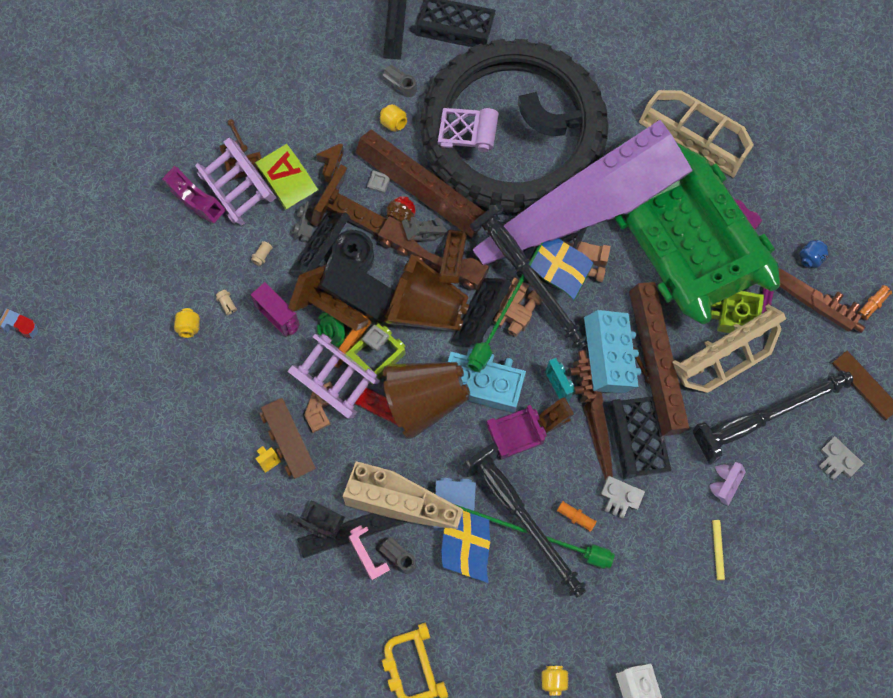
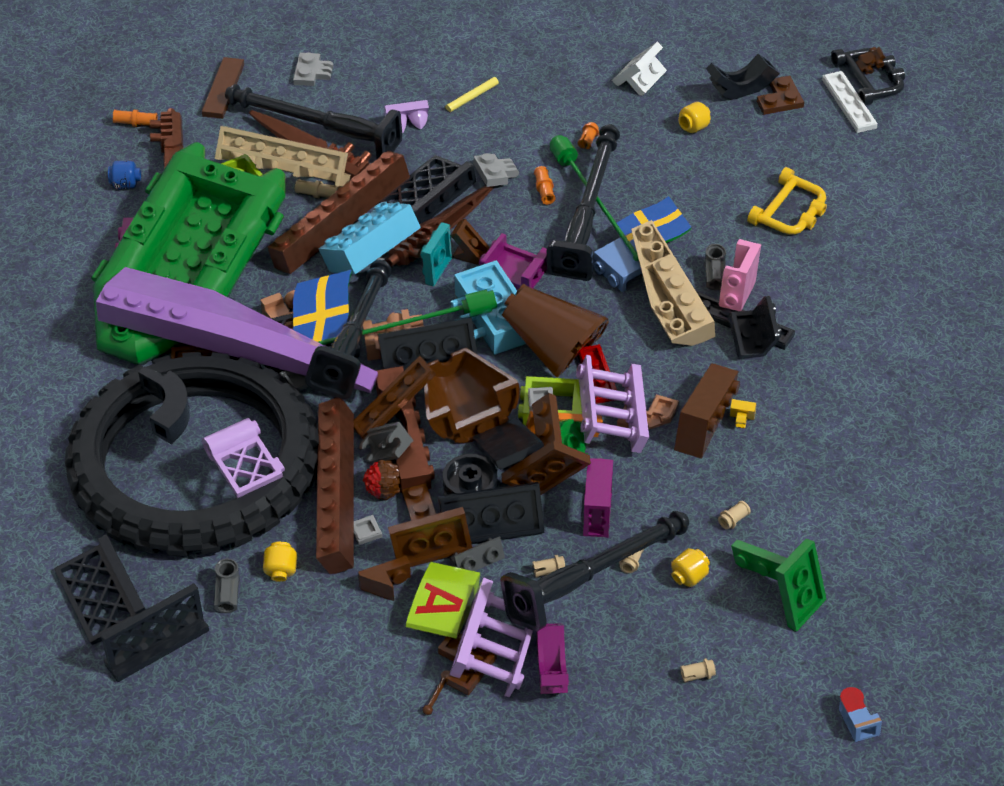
camera: 130 degrees left, 25 degrees down
(110, 362) = (797, 577): none -> green piece
(123, 270) = (698, 670): none -> tan pin
(201, 384) = (729, 518): none -> tan pin
(228, 228) = (526, 598): none -> black piece
(602, 590) = (590, 131): none -> orange pin
(727, 162) = (77, 322): tan plate -> none
(735, 396) = (285, 131): none -> copper piece

